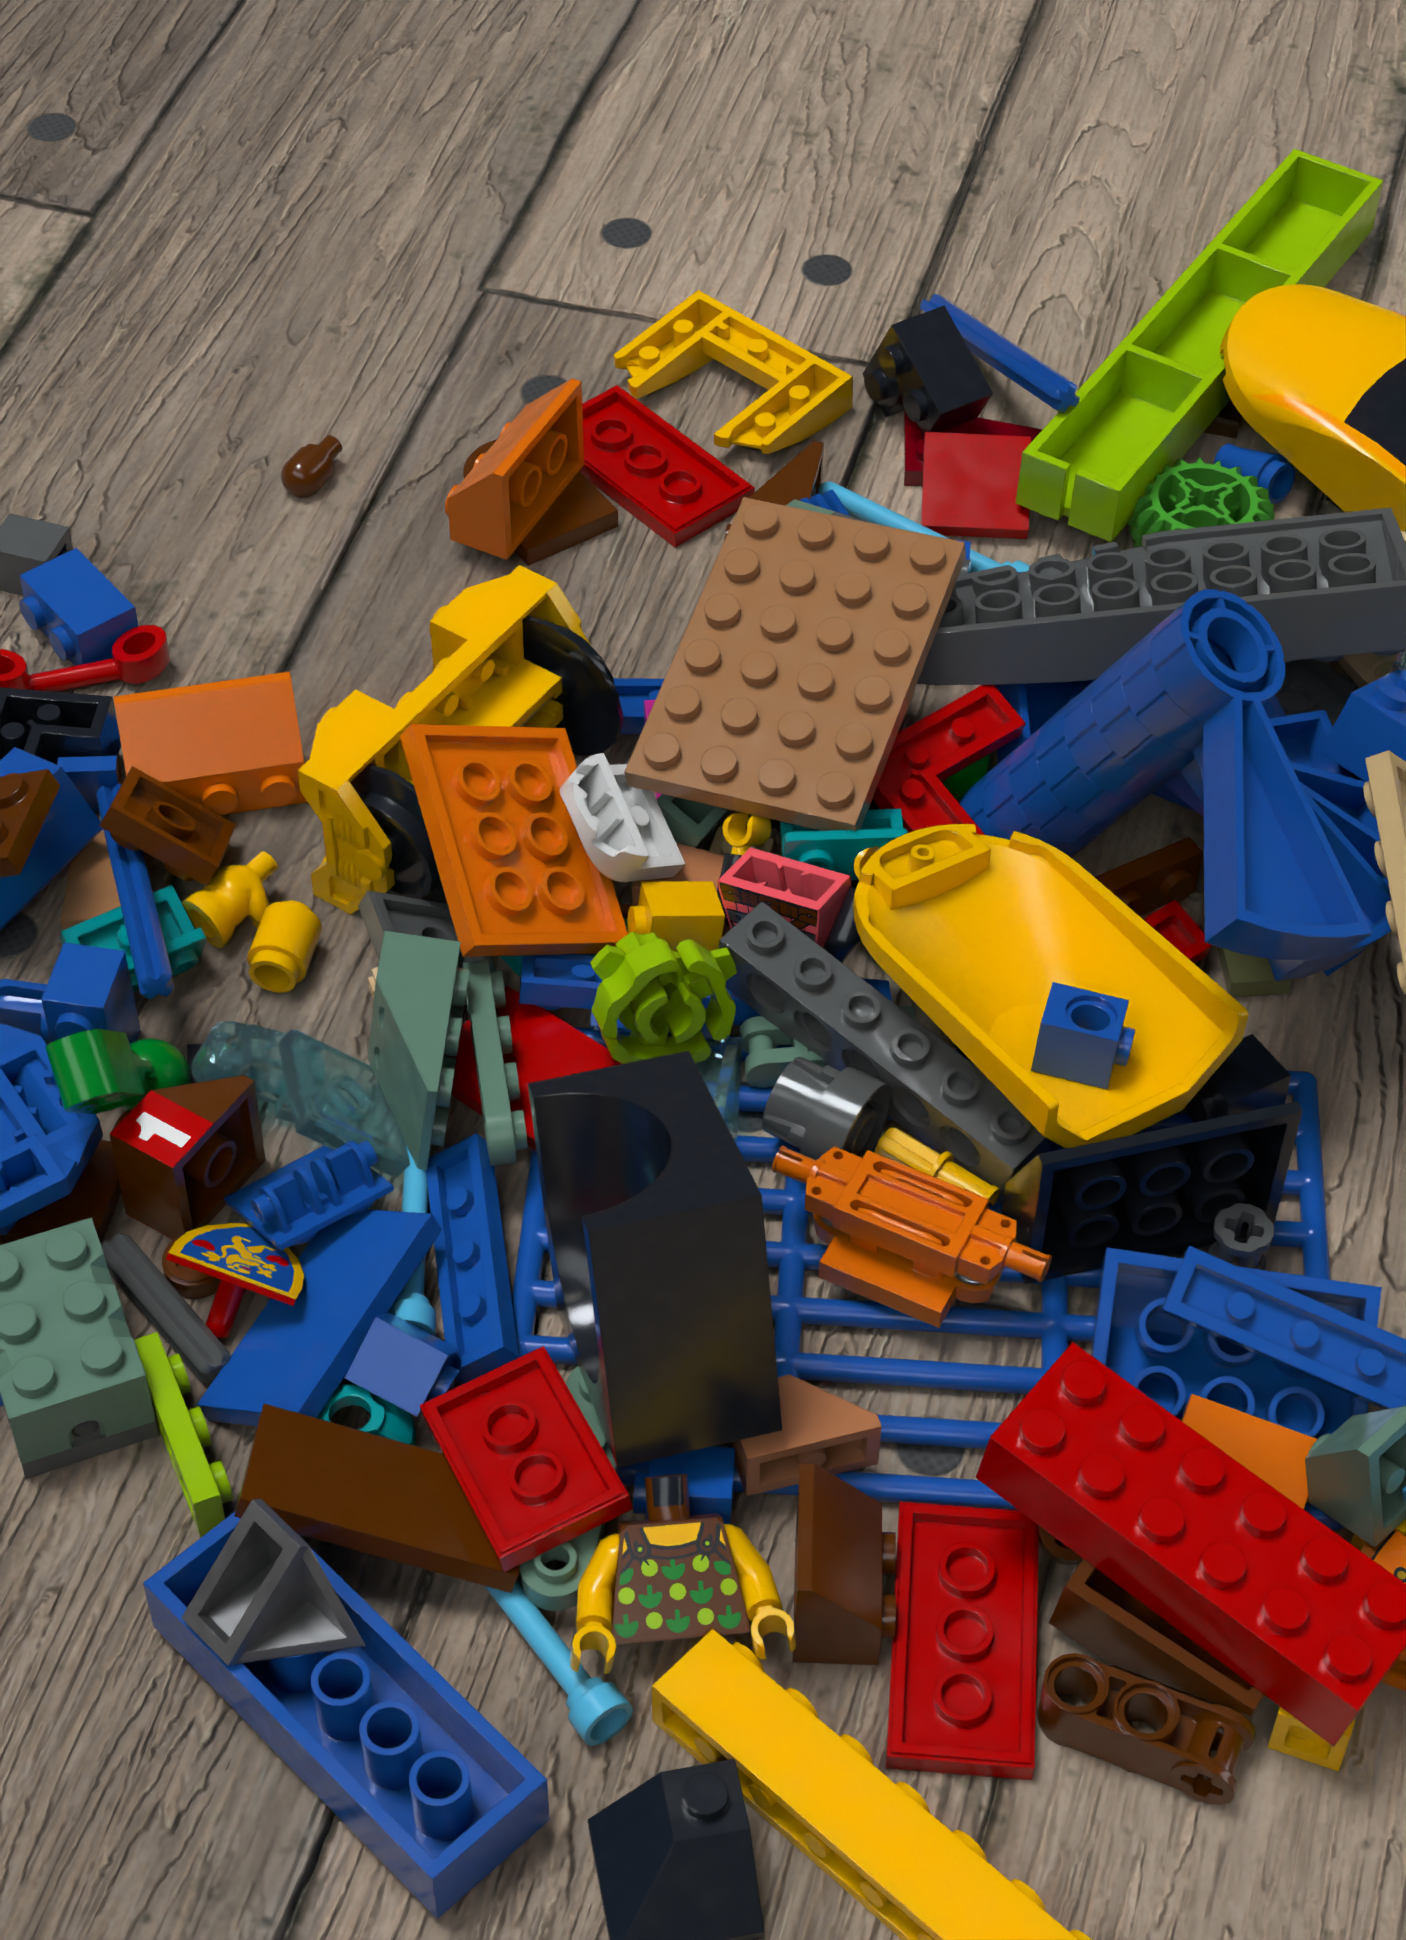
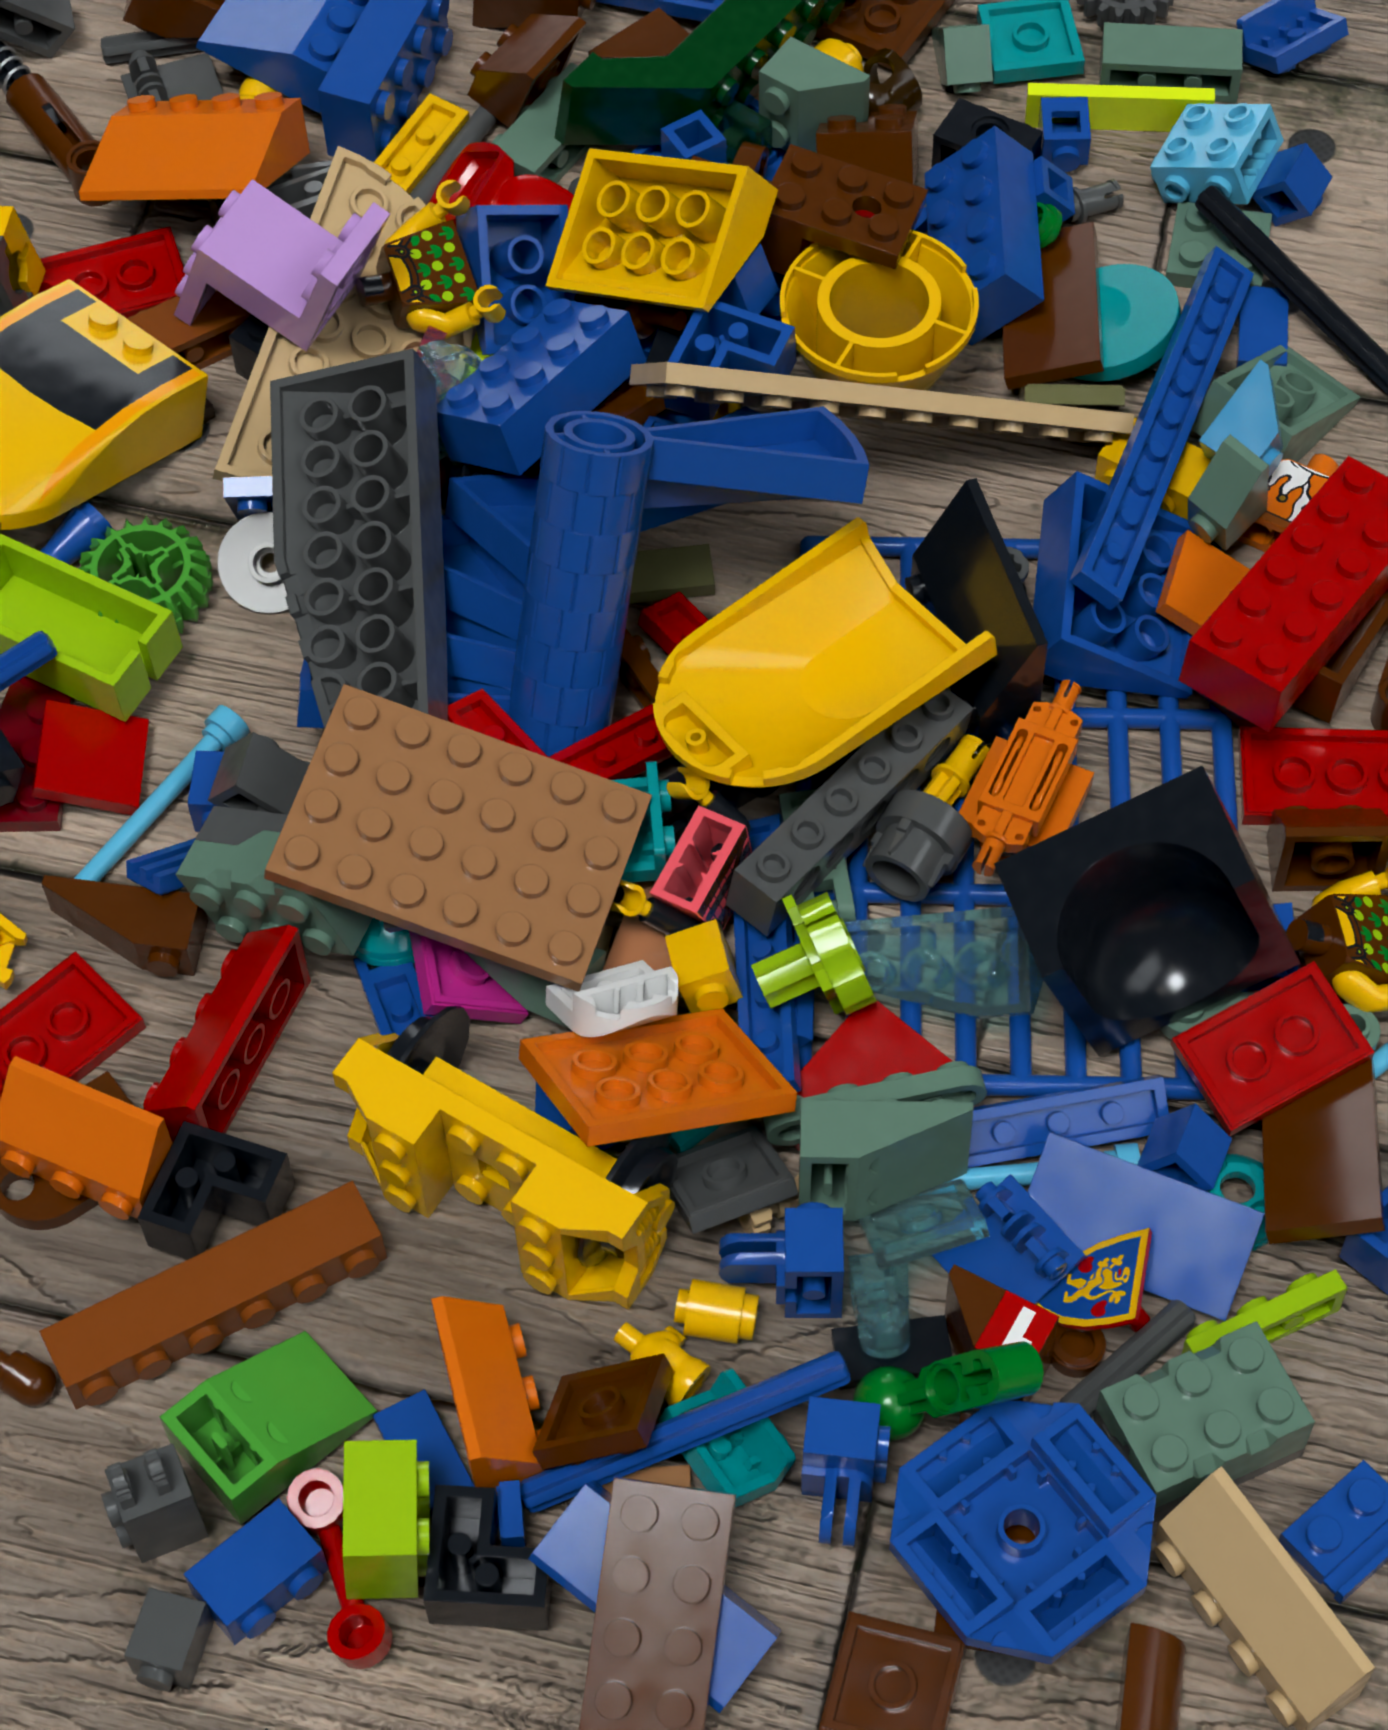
camera: 90 degrees left, 10 degrees up
(85, 645) = (384, 1519): none -> lime brick
(146, 521) = (153, 1504): none -> dark grey hinge
(221, 605) = (265, 1422): none -> bright green slope
(313, 987) = (801, 1260): none -> blue brick
(358, 572) = (214, 1295): none -> dark orange brick
(462, 548) = (212, 1177): none -> black brick
(614, 575) = (232, 1032): none -> red slope
(1082, 1036) = (861, 645): blue brick -> none

